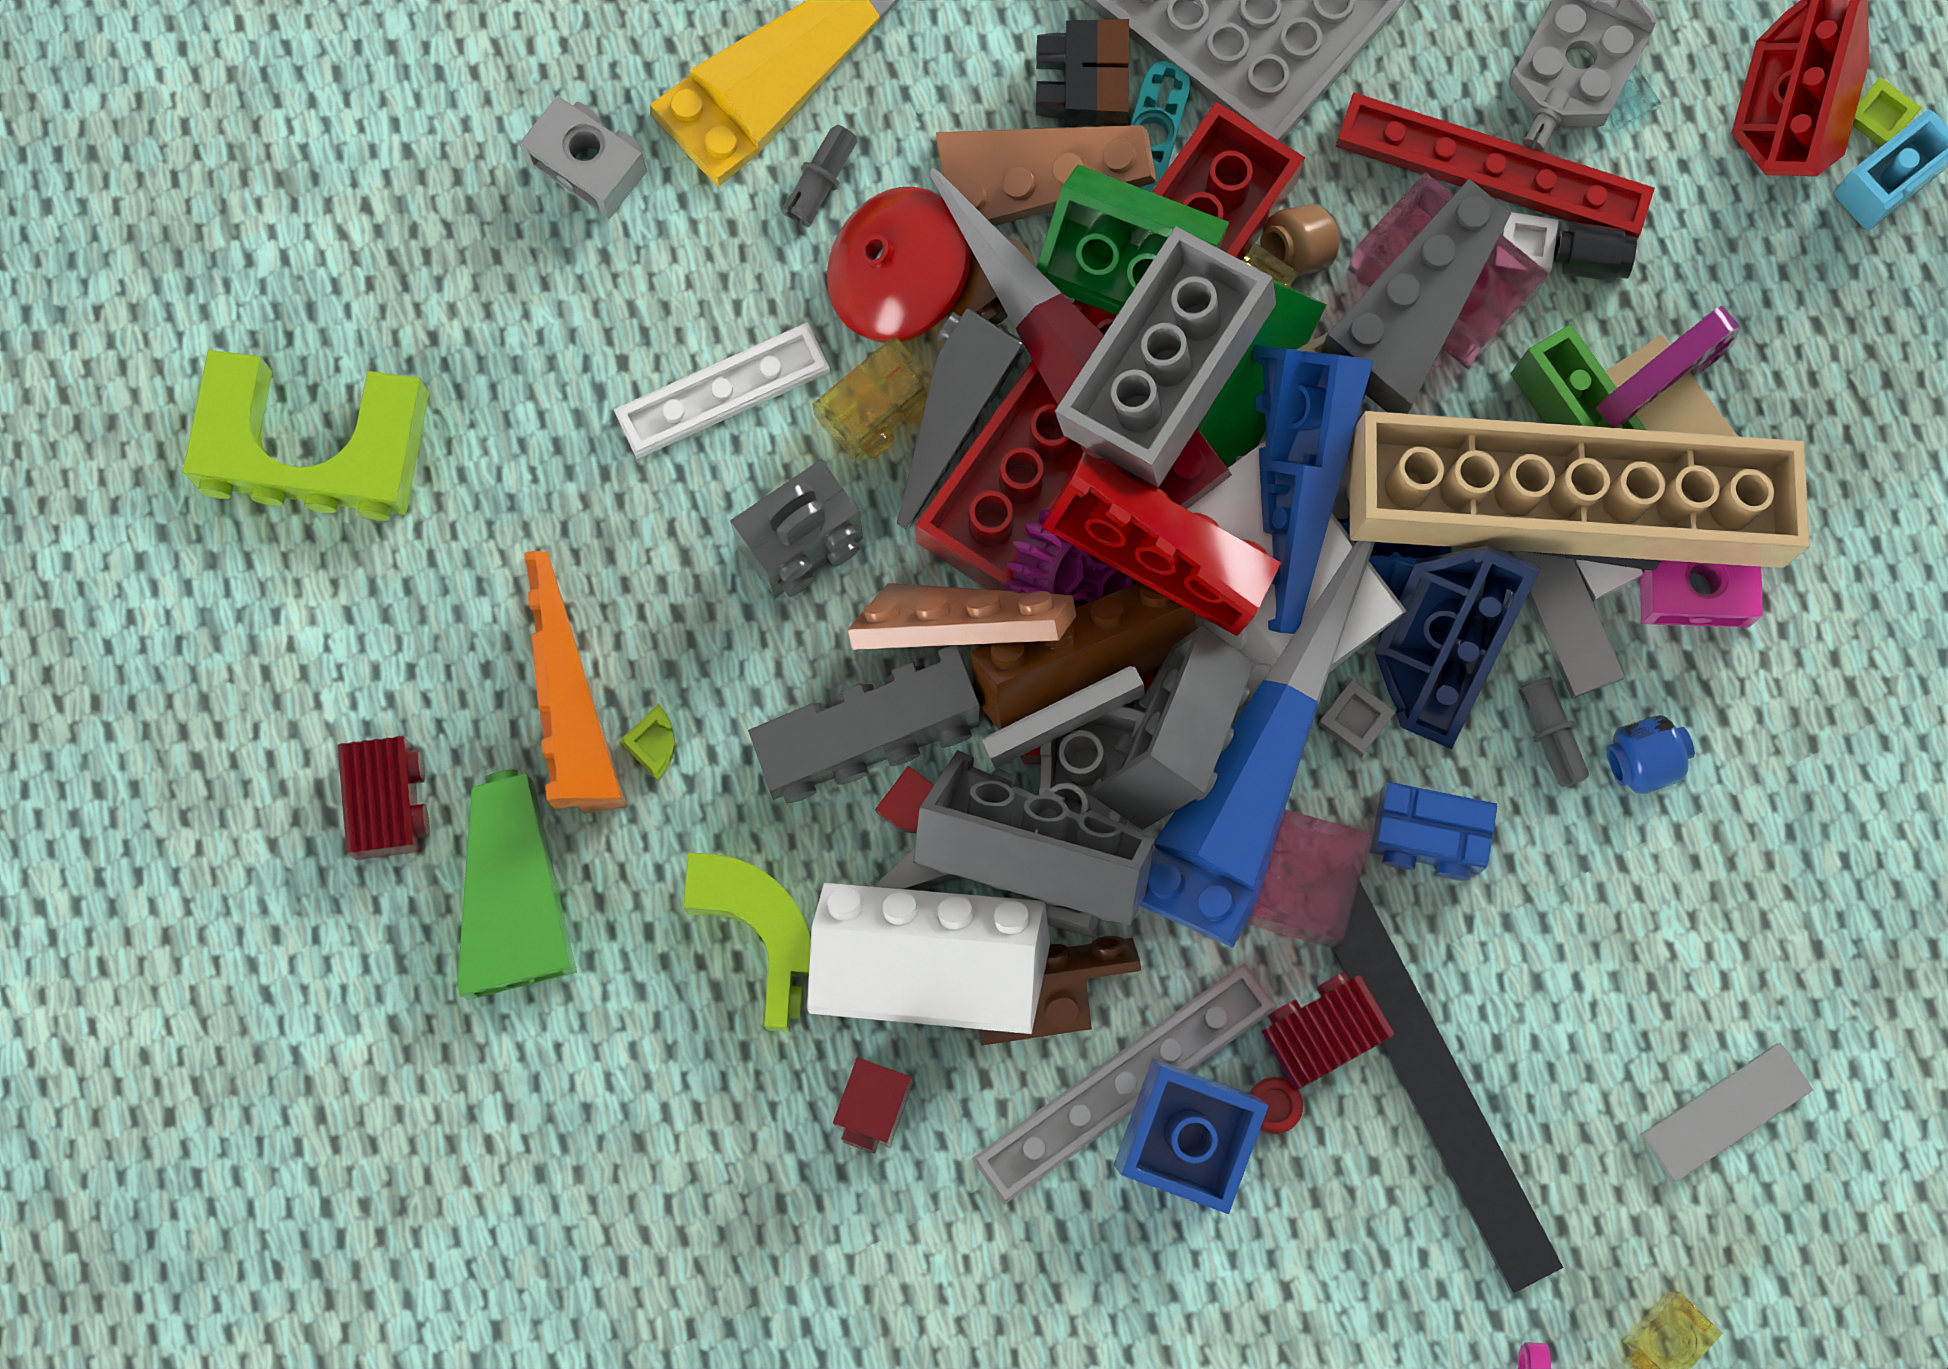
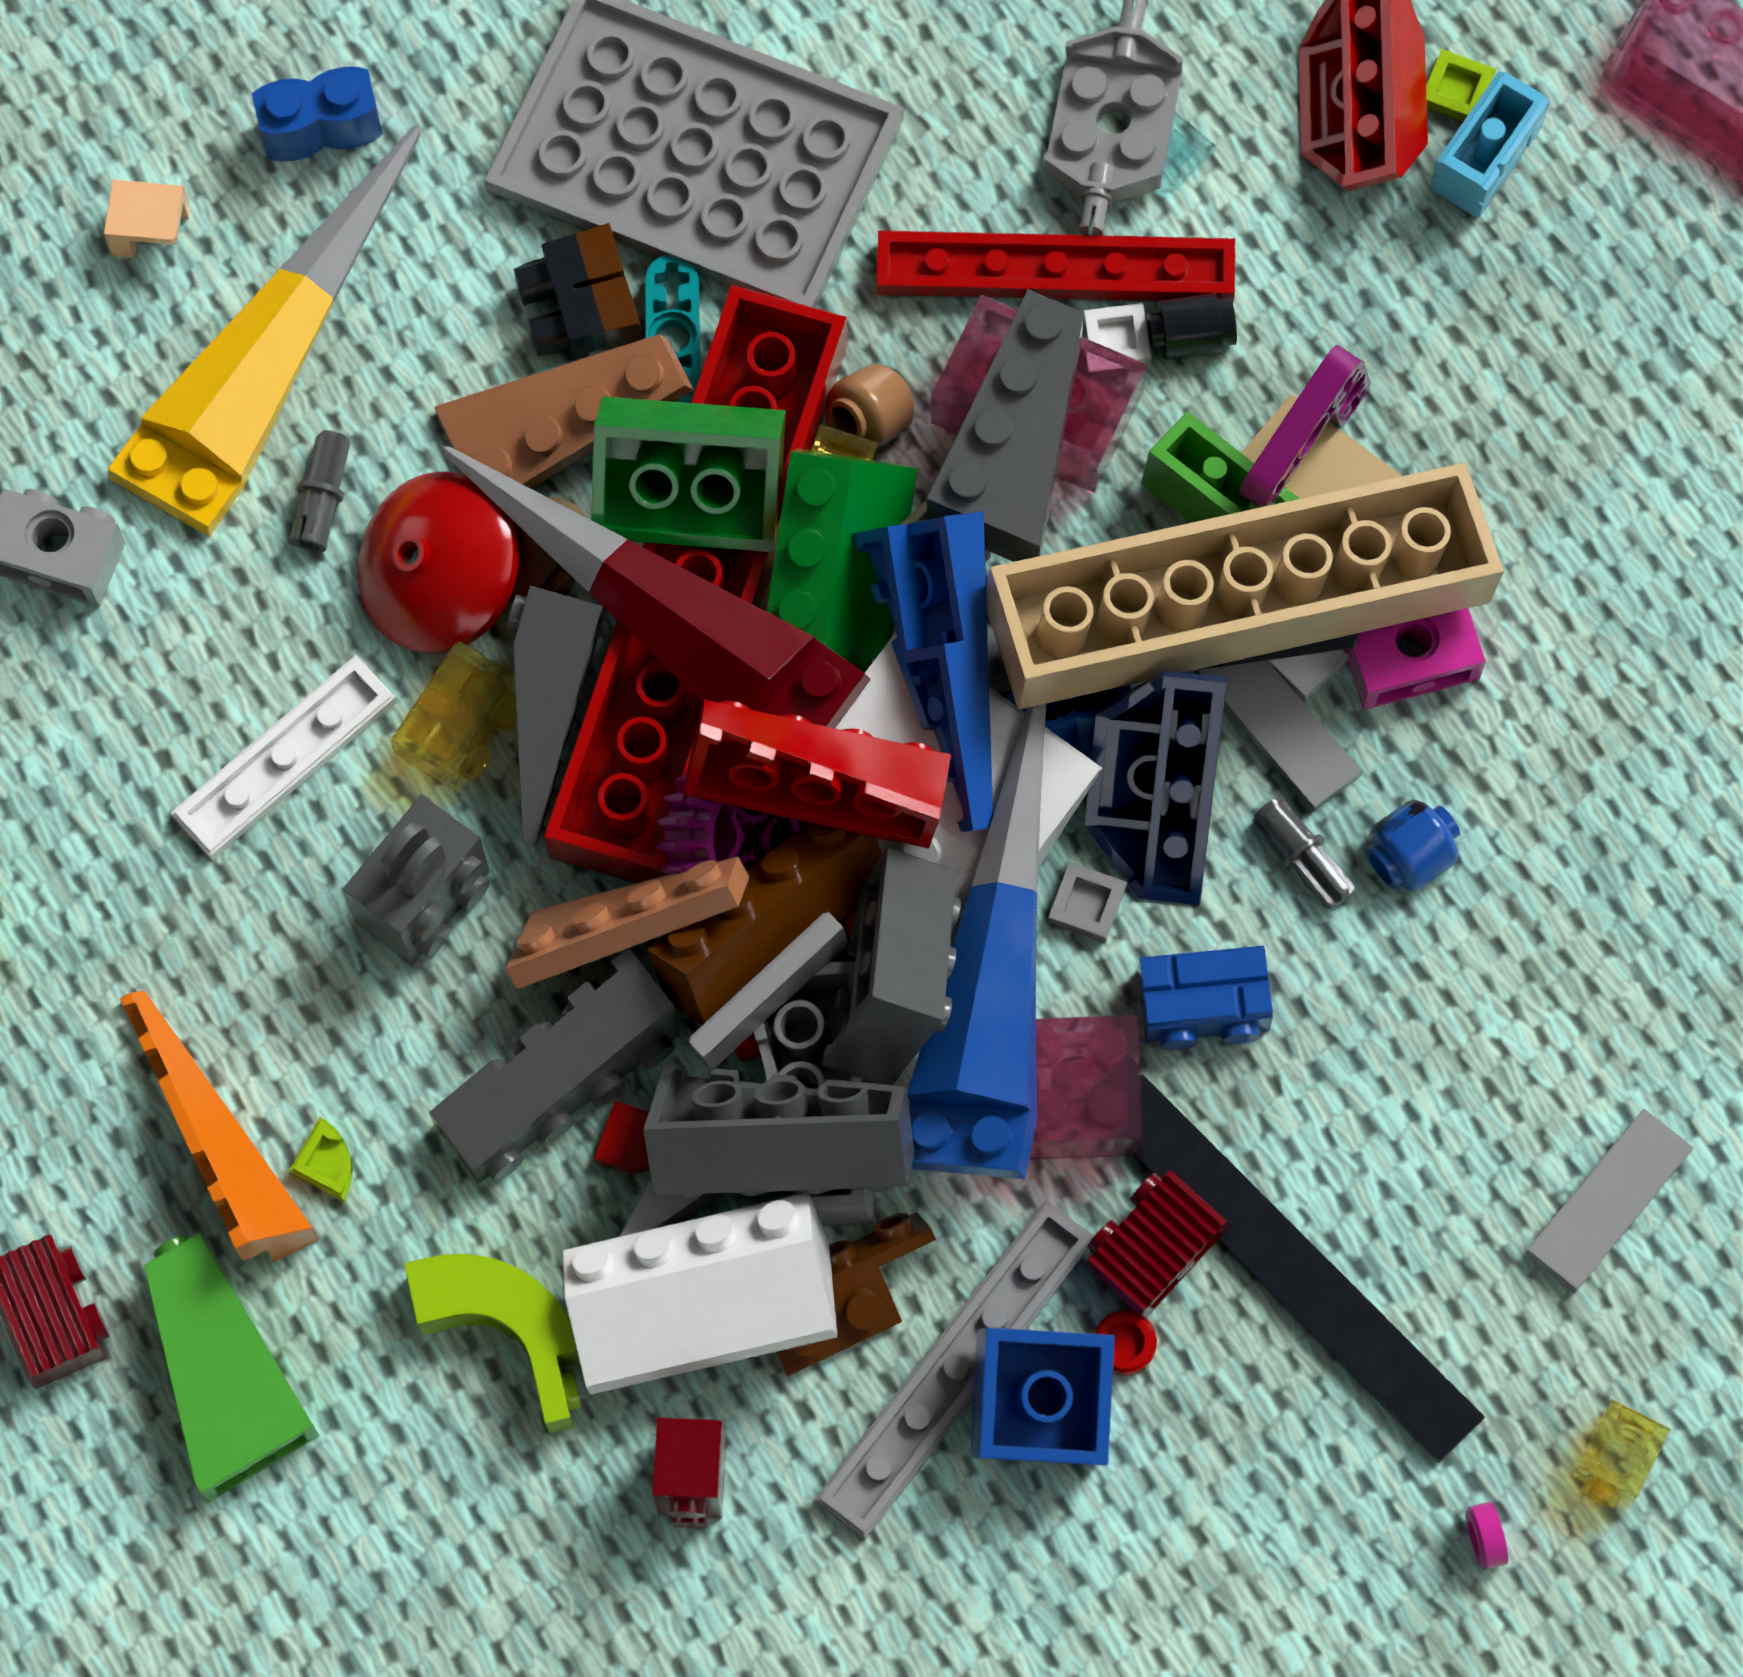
camera: 15 degrees left, 5 degrees down
(1166, 356) = (761, 572): light grey brick -> none

